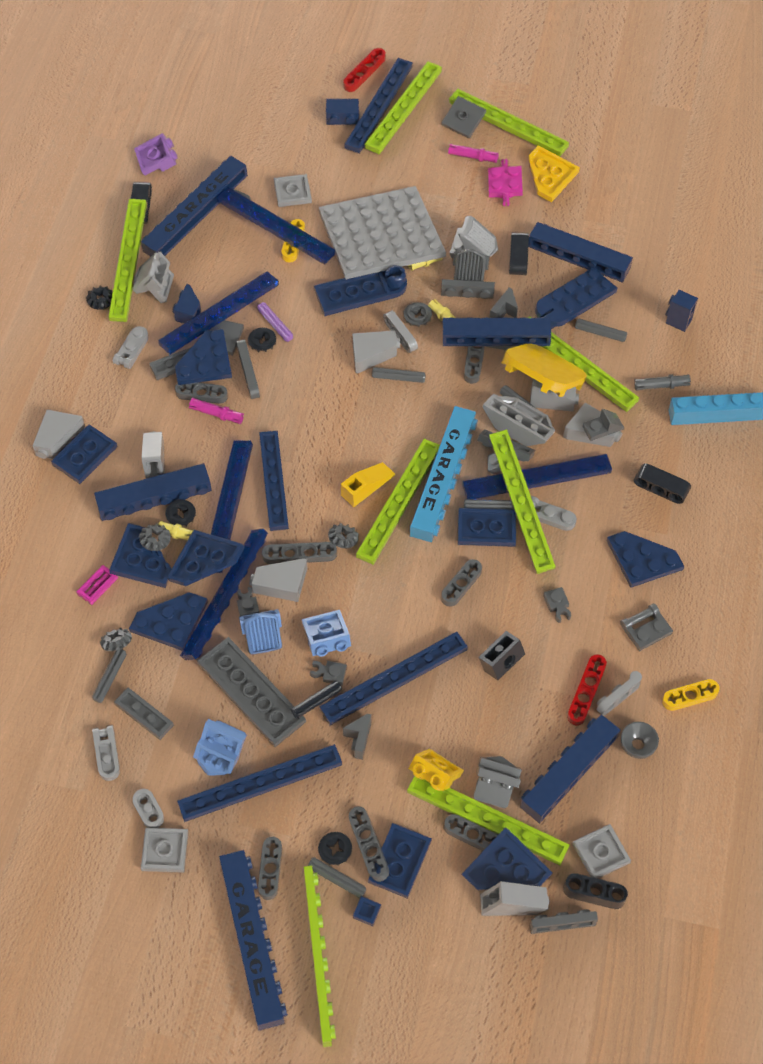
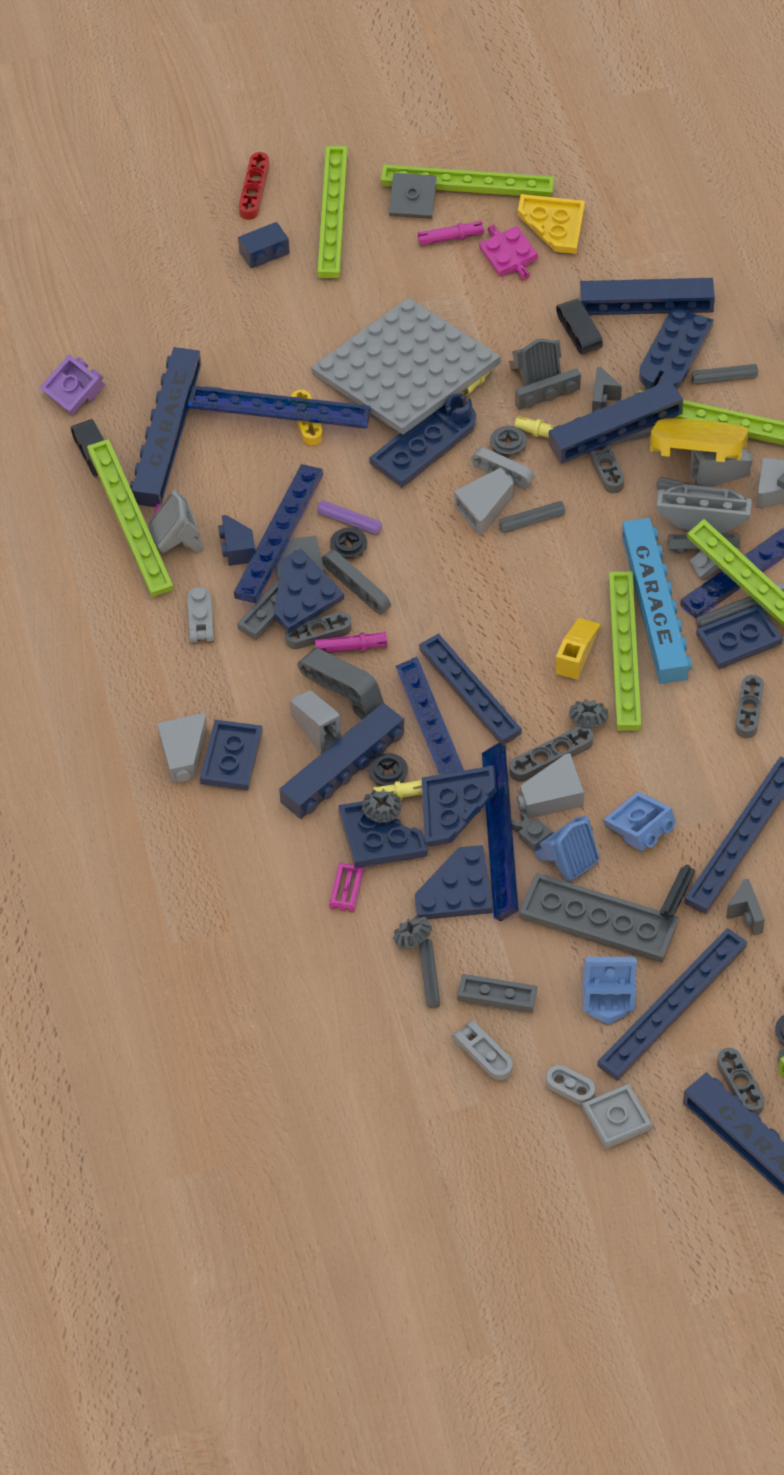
camera: 25 degrees left, 5 degrees down
(101, 303) = (130, 578): black gear -> none
(189, 435) = (343, 679): none -> dark grey beam
(292, 190) = (266, 360): light grey plate -> none
(331, 672) = (670, 859): dark grey plate -> none
(378, 105) = (301, 221): dark blue plate -> none
(474, 236) = (517, 330): light grey piece -> none

